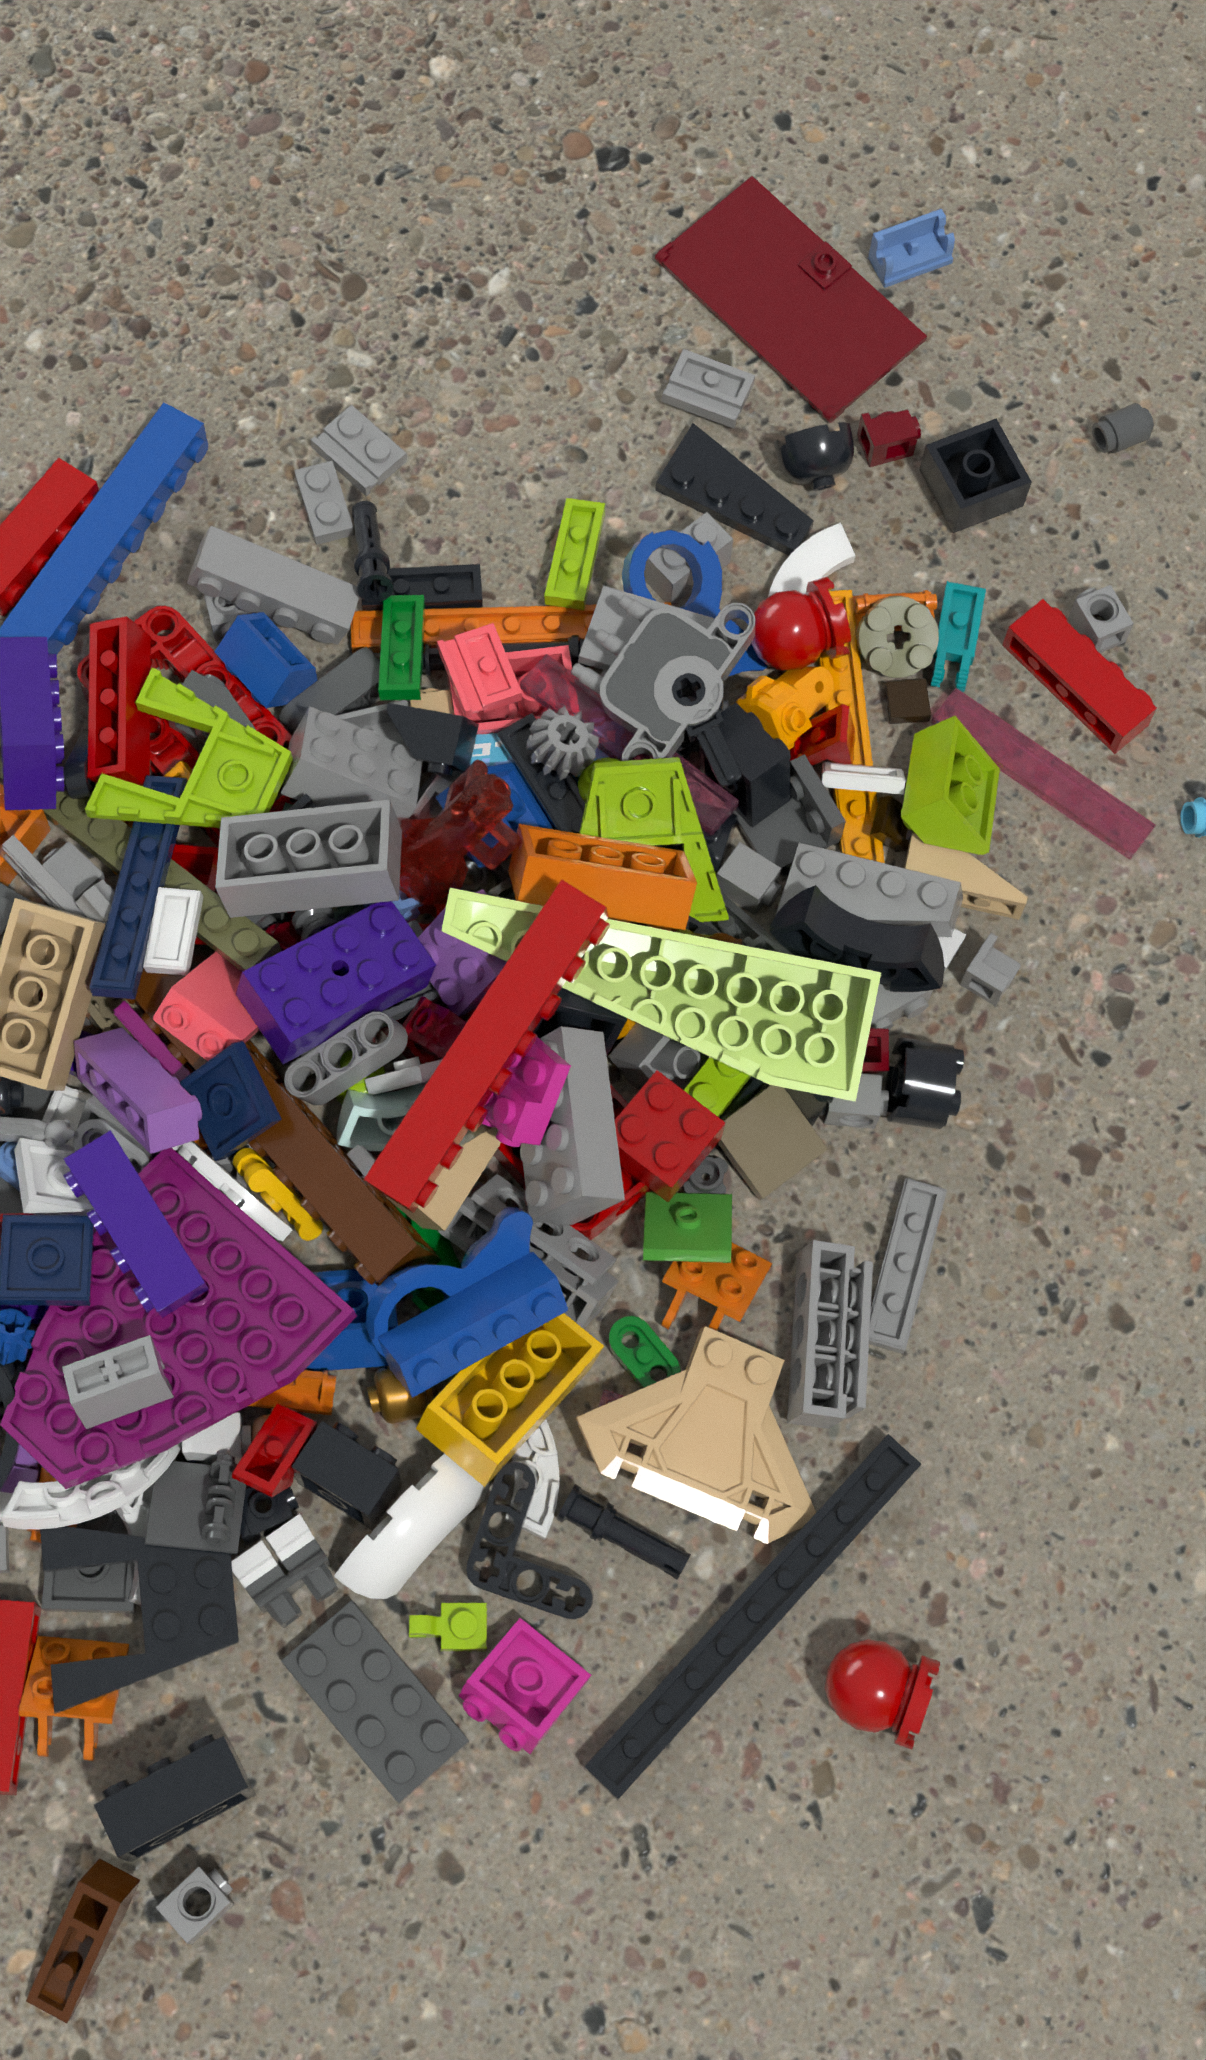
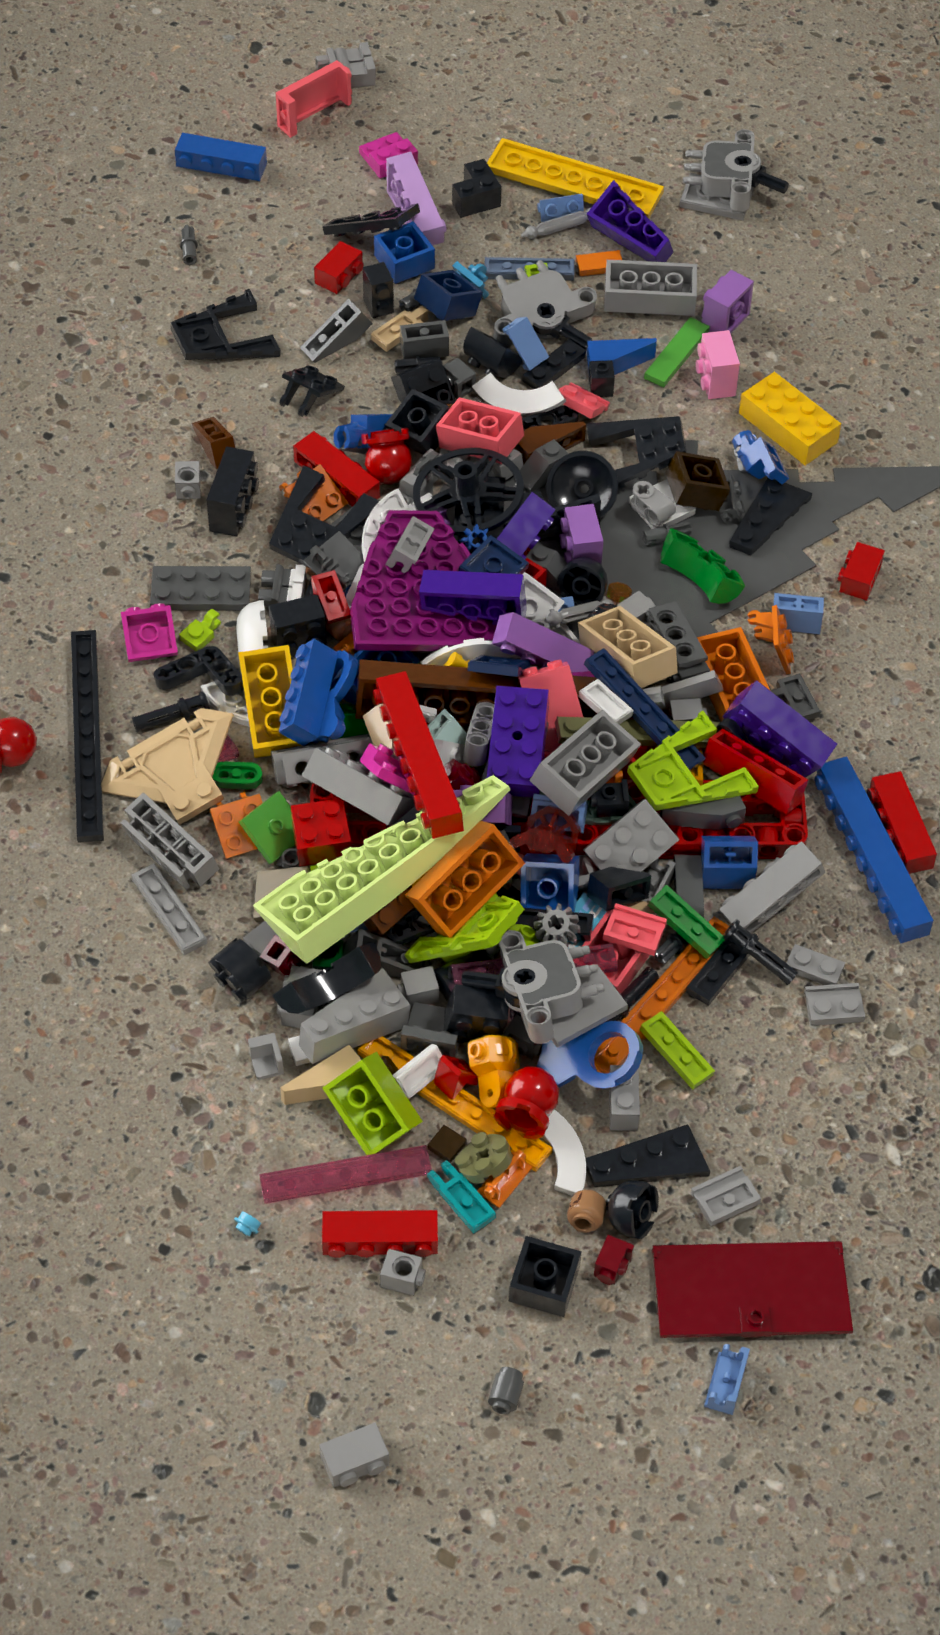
camera: 135 degrees right, 15 degrees down
(857, 499) = (586, 1210): none -> medium nougat head

